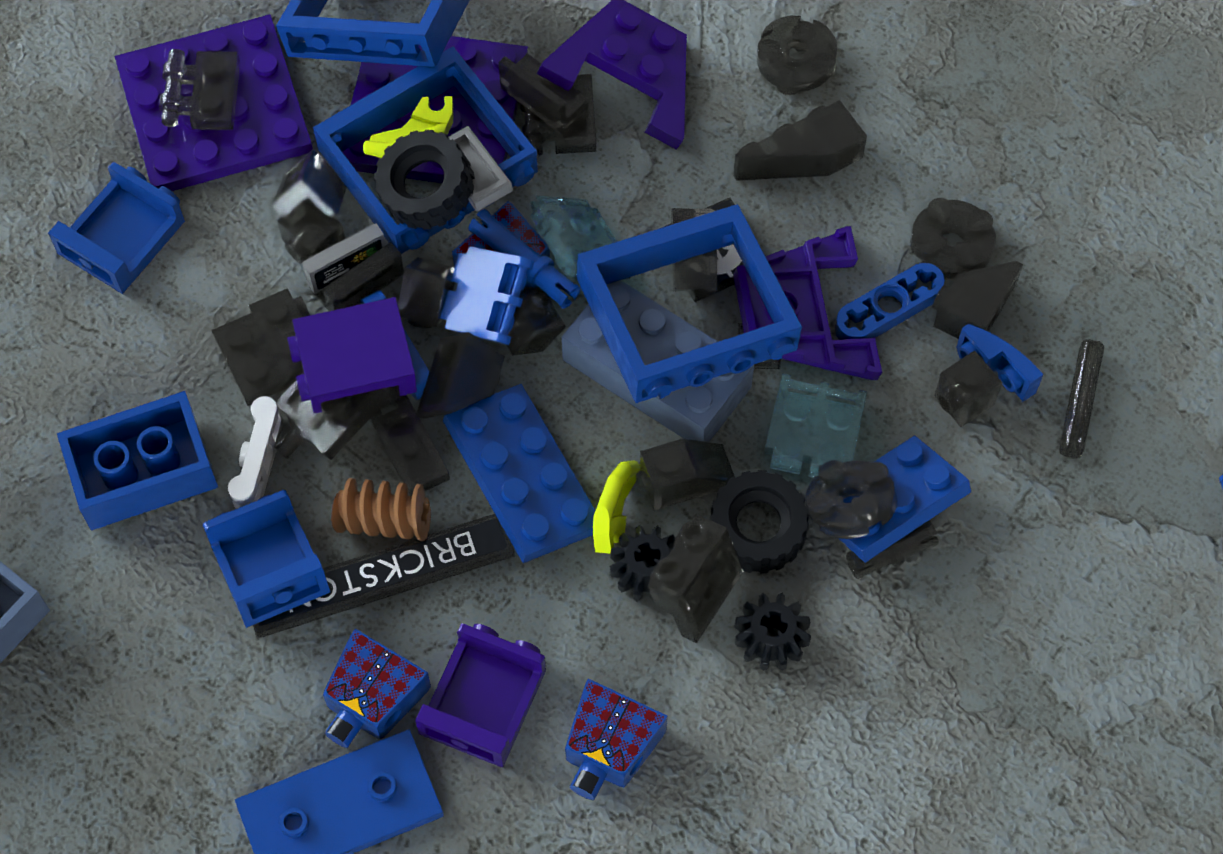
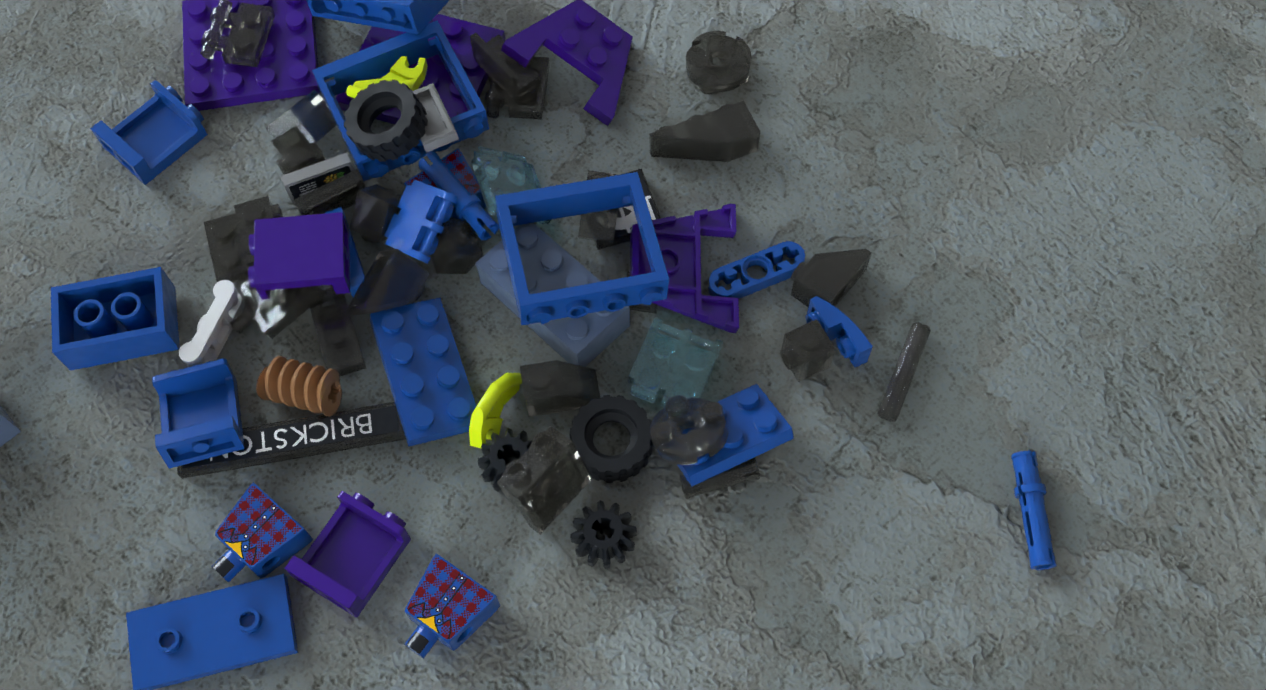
camera: 10 degrees right, 0 degrees up
(954, 217) = (824, 208): clear smoke plate -> none

